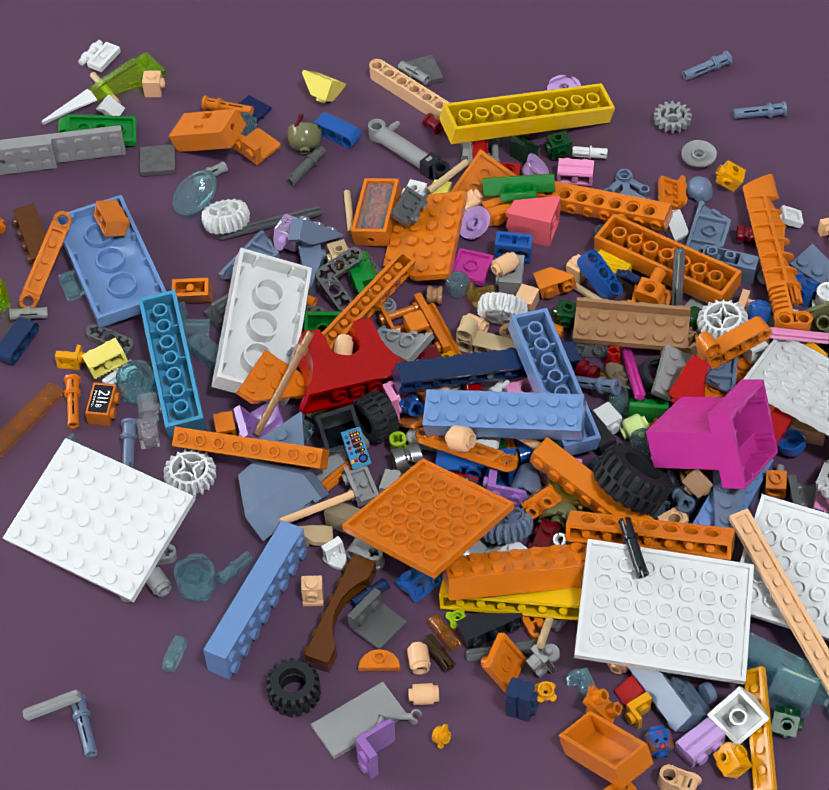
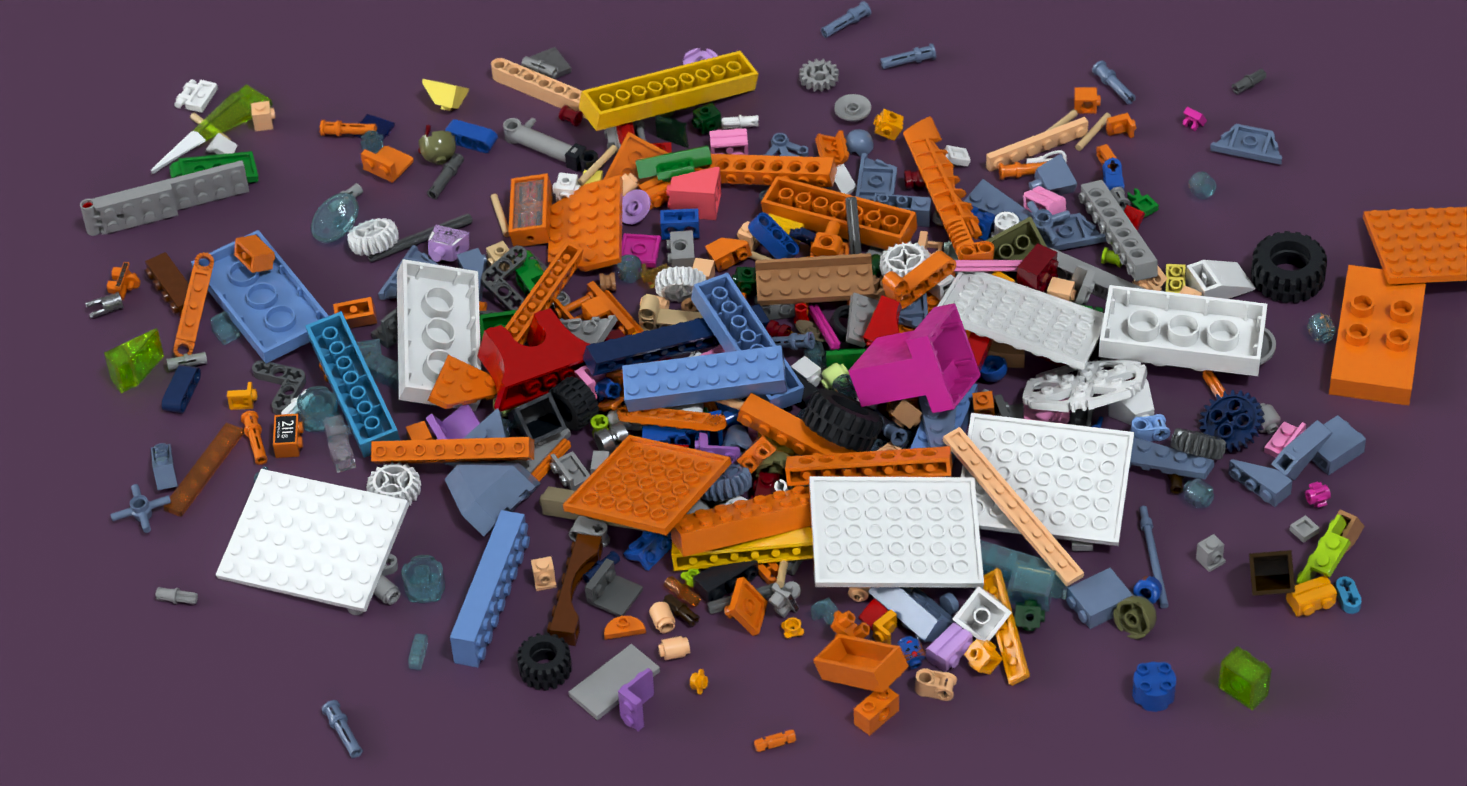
camera: 10 degrees left, 5 degrees down
(52, 704) = (307, 714): light grey axle -> none
(105, 358) = (280, 390): light yellow brick -> none
(128, 439) = (322, 462): sand blue pin -> none
(157, 160) = (285, 192): flat silver tile -> none
(207, 130) = (334, 153): orange brick -> none
(234, 568) = (459, 566): clear light blue axle -> none
(301, 350) = (488, 346): medium nougat bar -> none
(309, 233) = (464, 238): sand blue slope -> none
(317, 534) = (539, 524): tan slope -> none
(318, 507) = (534, 494): light nougat bar -> none
(334, 554) = (557, 537): white tile -> none
(343, 345) = (528, 337): light nougat brick -> none
(356, 448) = (560, 435): tile -> none
(401, 716) = (665, 670): light grey piece -> none
(408, 207) = (564, 199): dark grey bracket -> none
(460, 438) = (665, 407): light nougat head -> none
(505, 264) = (674, 240): light nougat brick -> none
(521, 699) = (770, 635): dark blue brick -> none
(534, 166) = (684, 142): lavender piece -> none
(631, 538) = (851, 470): black pin -> none
(759, 308) = (940, 244): blue head -> none

